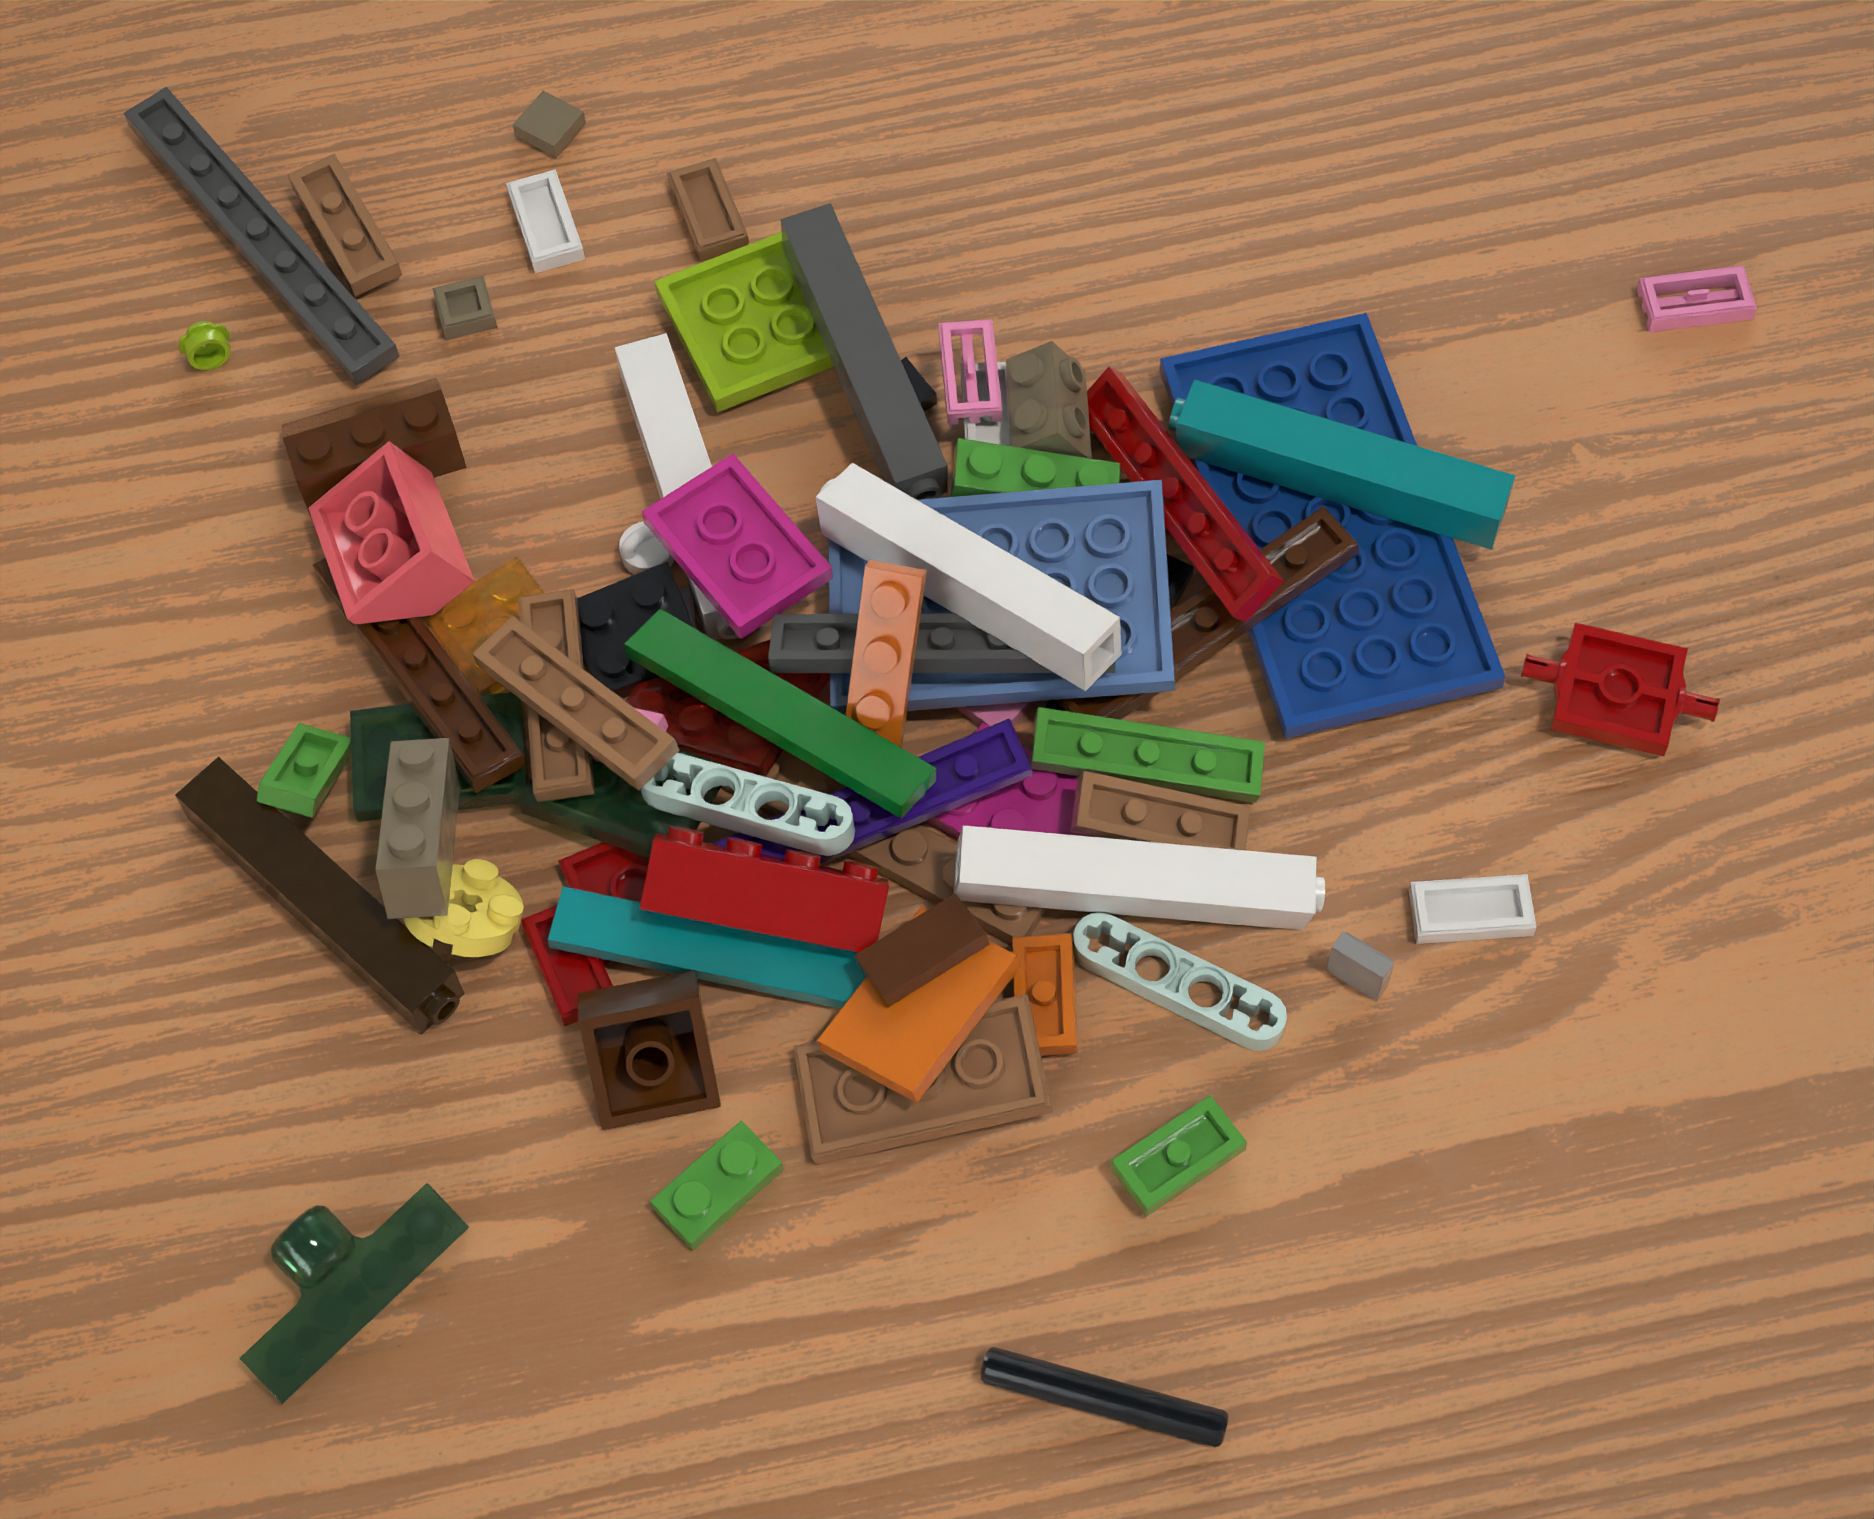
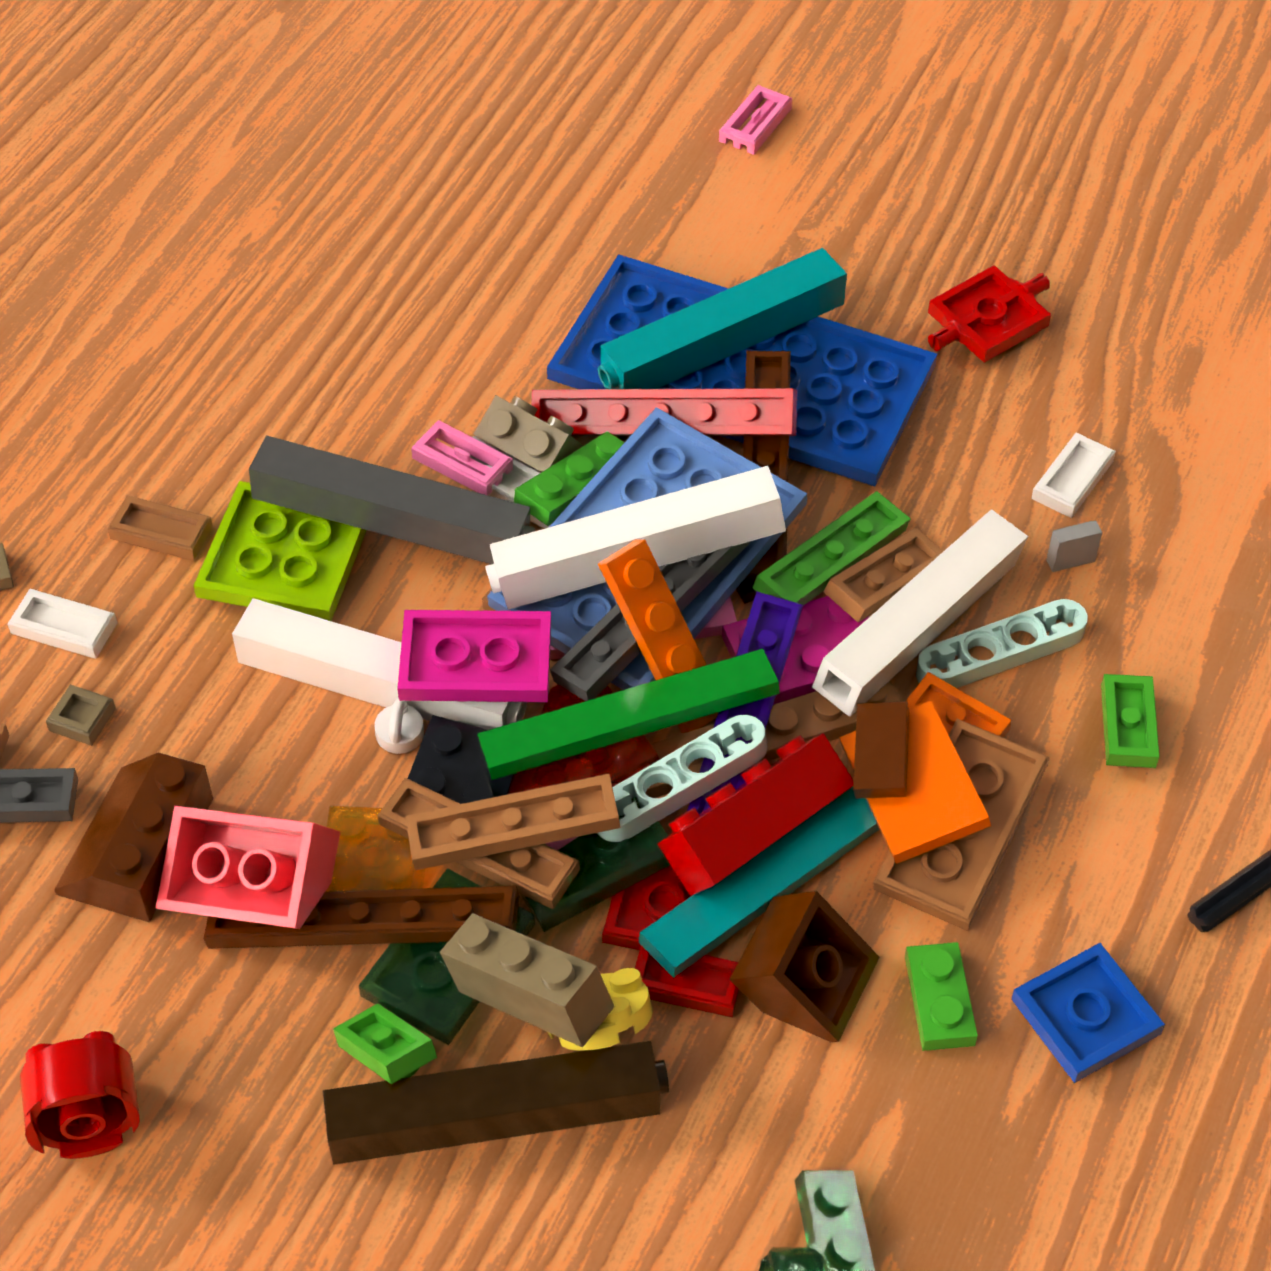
camera: 55 degrees left, 10 degrees down
(87, 588) = (79, 1095): none -> red brick
(792, 1324) = (1087, 1012): none -> blue plate

